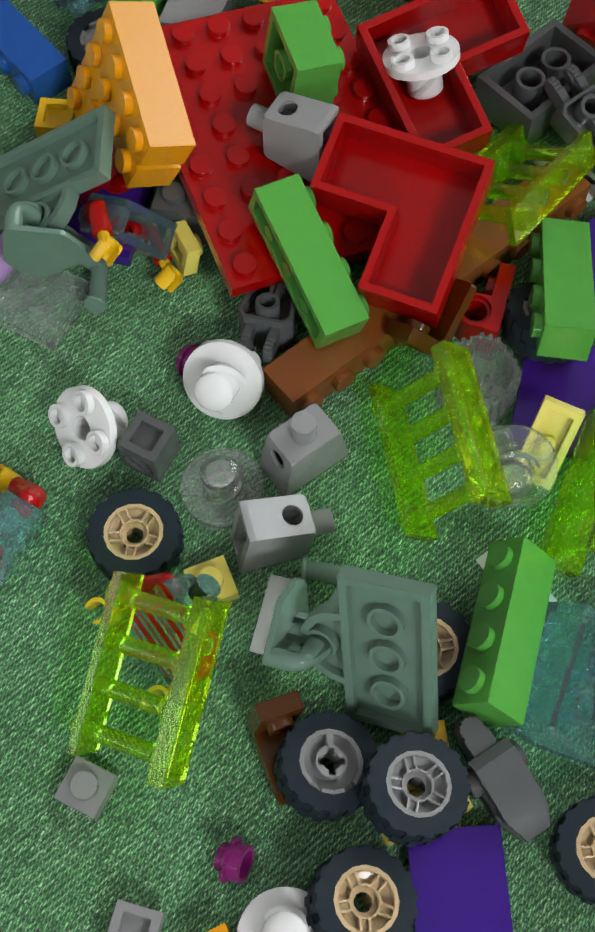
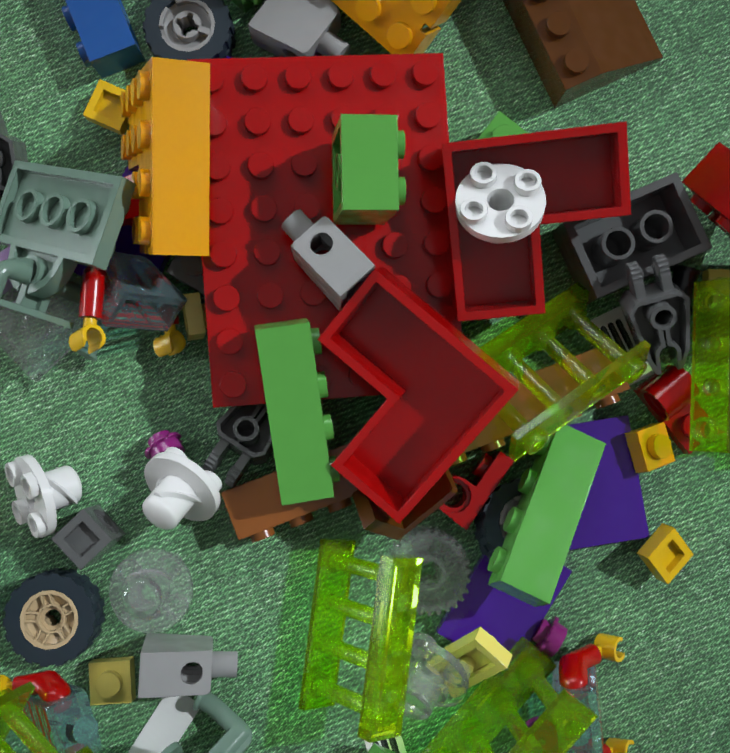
camera: 15 degrees right, 20 degrees up
(306, 447) = (238, 586): light grey torso -> none

